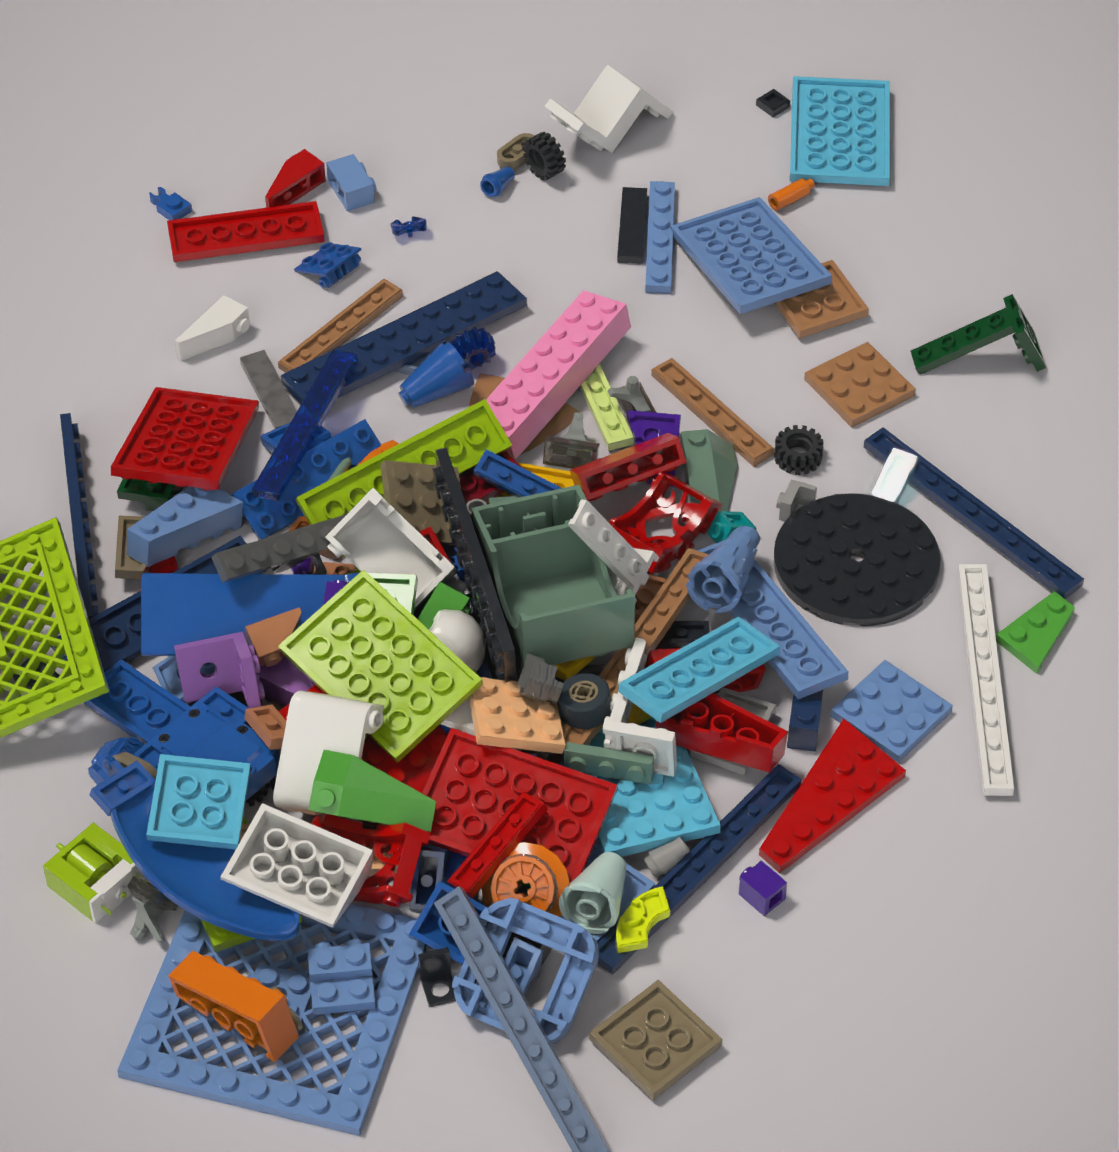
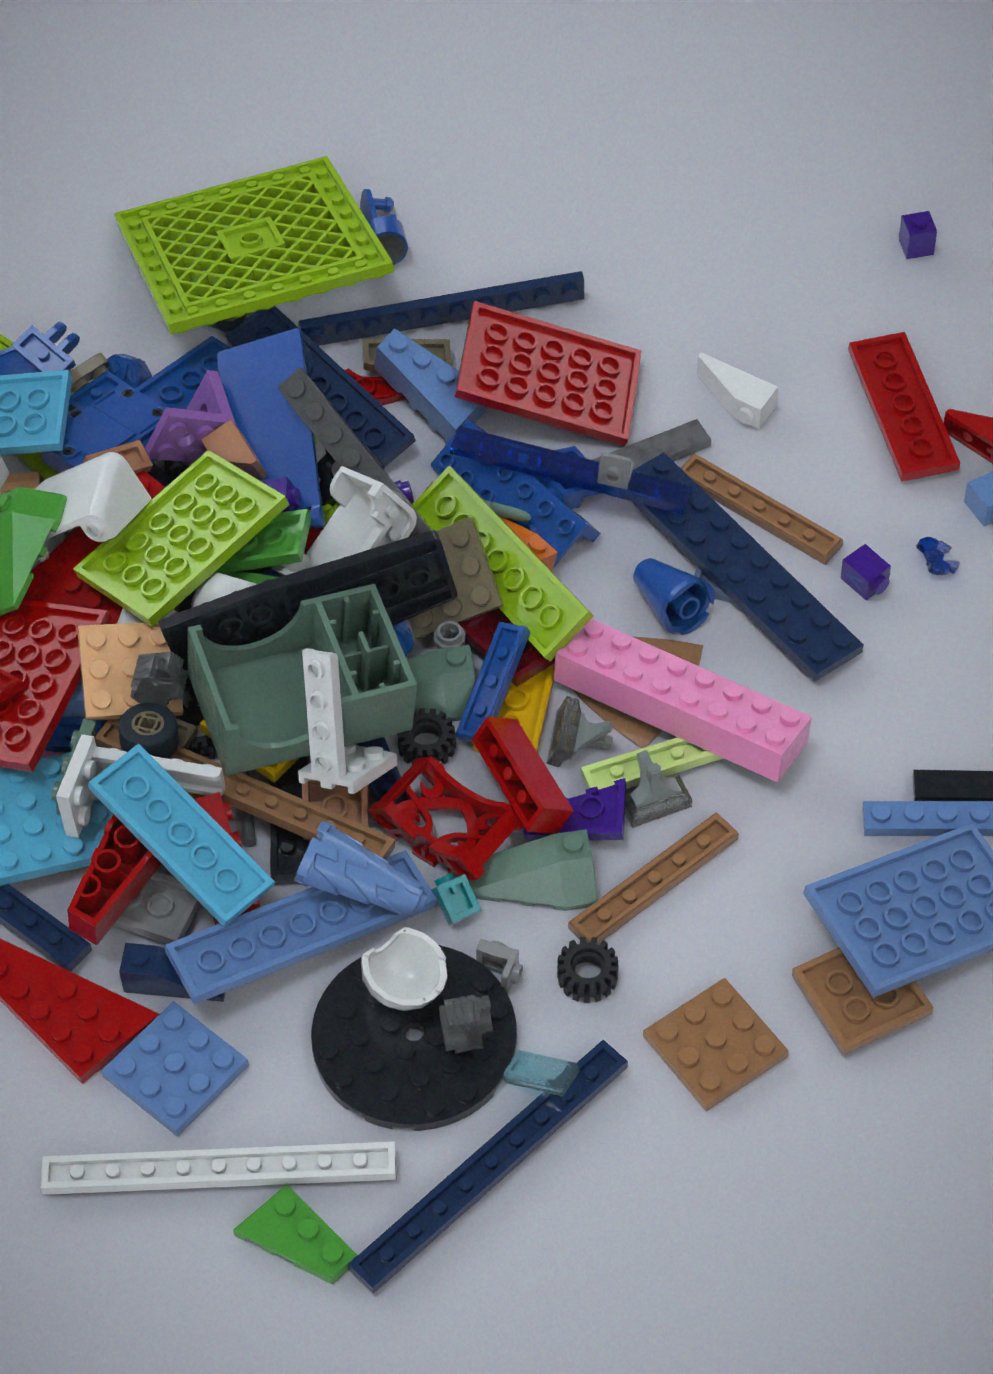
camera: 90 degrees right, 5 degrees up
(55, 203) = (917, 235): none -> dark purple brick
(171, 206) = (942, 340): blue plate -> none
(327, 385) = (615, 470): none -> light grey bracket
(331, 263) = (861, 486): blue hinge -> none
(422, 265) = (865, 572): none -> dark purple brick
(475, 347) = (720, 624): clear blue gear -> none
(821, 539) = (405, 970): none -> white cylinder
(865, 503) = (465, 1021): none -> dark grey hair
(980, 334) = (798, 1216): dark green bracket -> none

